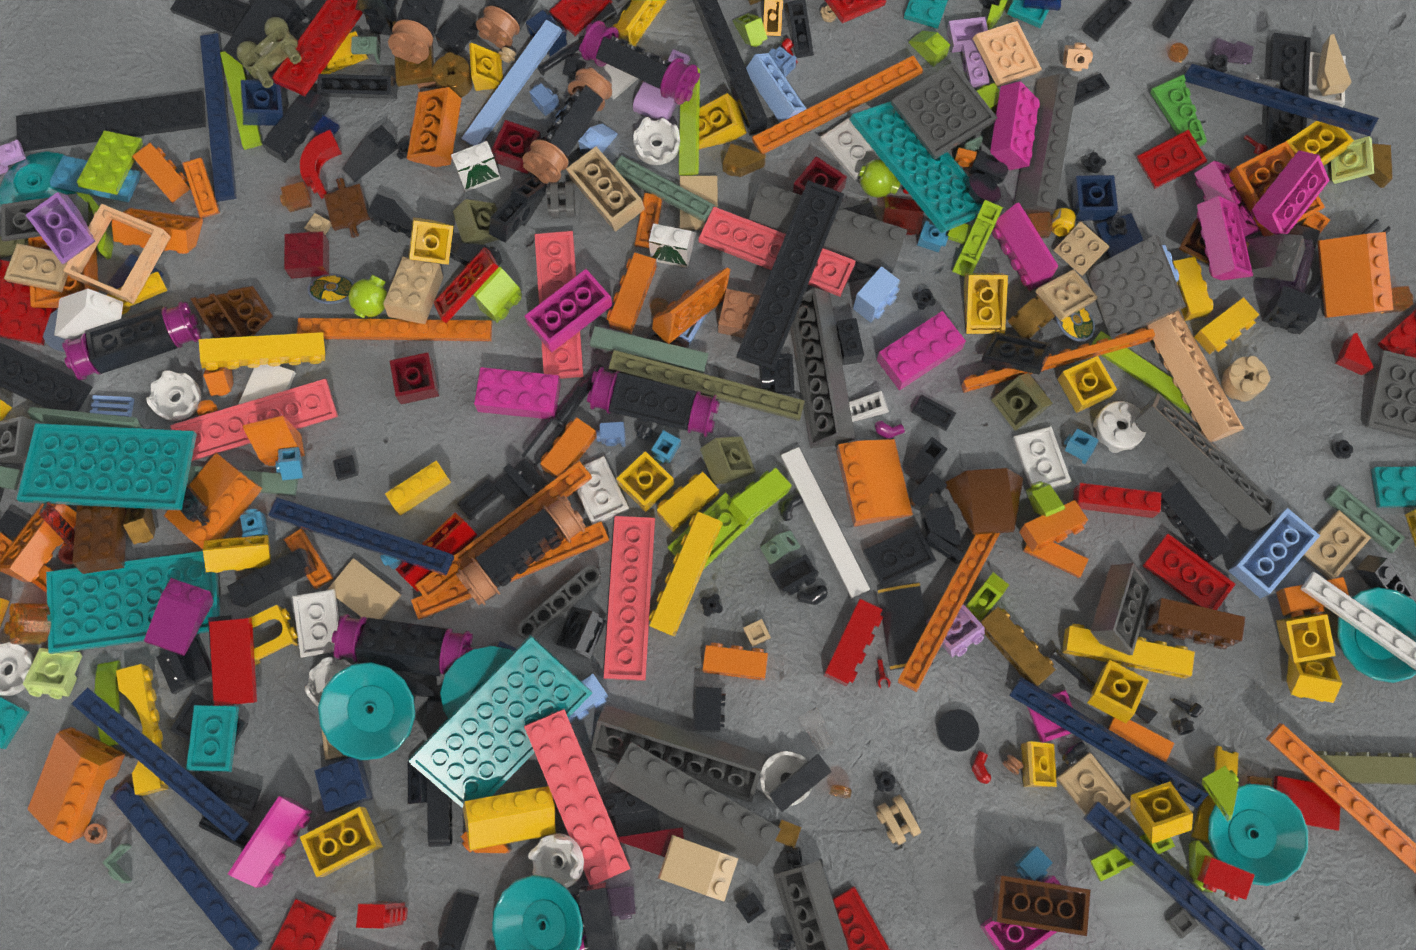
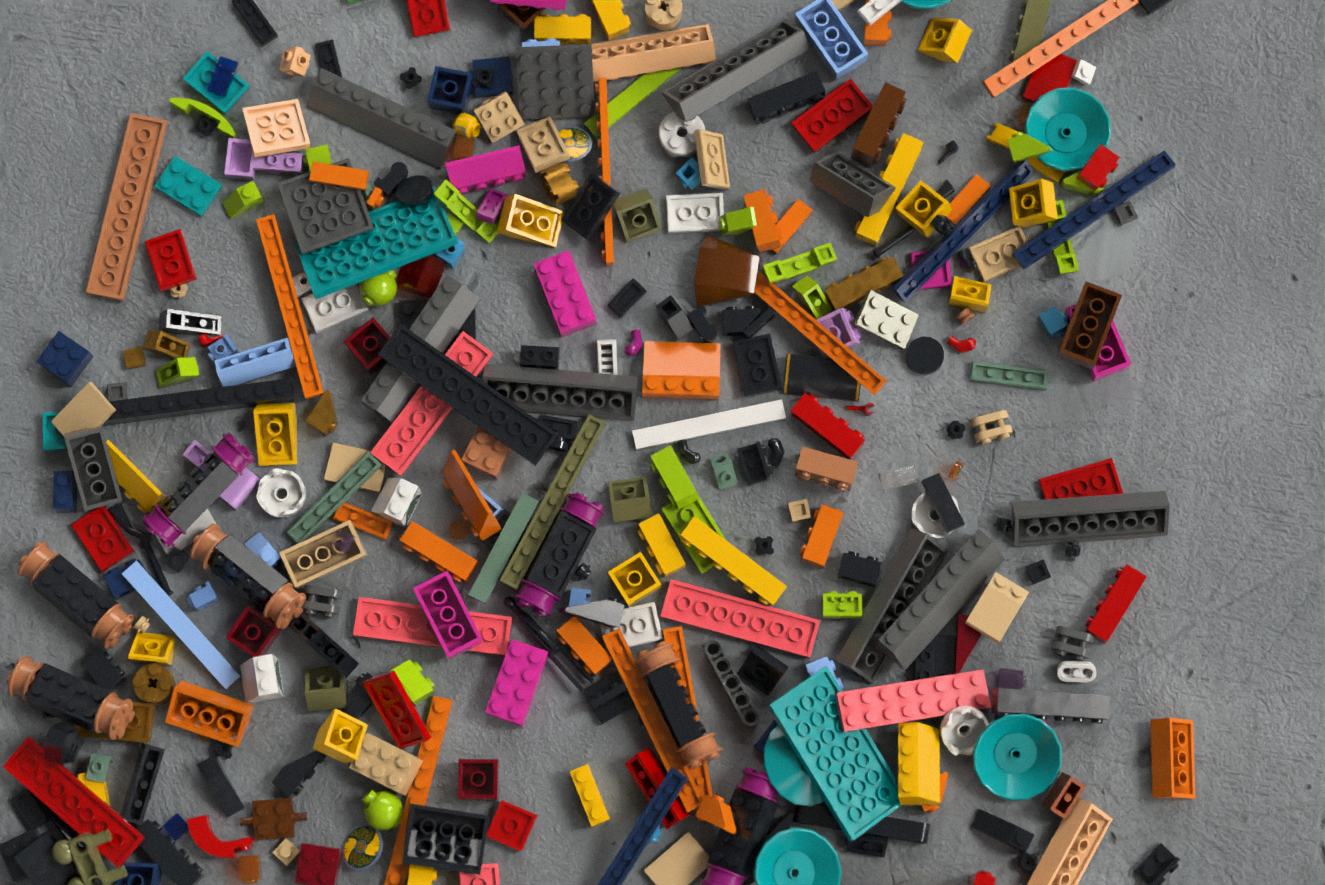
camera: 75 degrees left, 5 degrees up
(345, 468) = (552, 863): black plate -> none
(349, 358) = (445, 839): none -> black slope
(376, 421) = (511, 825): none -> red plate
(416, 614) = (717, 813): none -> orange slope
(479, 499) = (612, 741): black tile -> none
(603, 452) = (602, 612): none -> slope
(615, 199) = (346, 542): none -> clear purple tile
(665, 441) = (601, 548): dark azure brick -> none
(665, 698) = (842, 605): none -> lime bracket
(690, 134) = (281, 458): lime tile -> none
(788, 834) = (982, 523): pearl gold tile -> none
(805, 649) = (826, 469): none -> nougat brick
(876, 295) = (501, 320): light blue brick -> none
(926, 293) = (511, 271): black plate -> none
(960, 828) = (1009, 375): none -> sand green tile
(976, 112) = (339, 175): none -> orange tile
(984, 678) = (886, 319): none -> plate
(988, 261) = (491, 206): none -> magenta plate
(1015, 126) = (358, 142): dark pink brick -> none
(1017, 575) = (800, 264): none -> lime slope
(1087, 384) = (635, 152): yellow brick -> none
(1103, 460) = (712, 159): none -> tan tile
(1106, 713) = (942, 225): none -> black hinge
(1117, 500) = (750, 157): red brick -> none
(1184, 726) = (964, 161): black plate -> none
(1306, 637) = (911, 34): yellow slope -> none
(1328, 839) = (1083, 72): none -> white plate

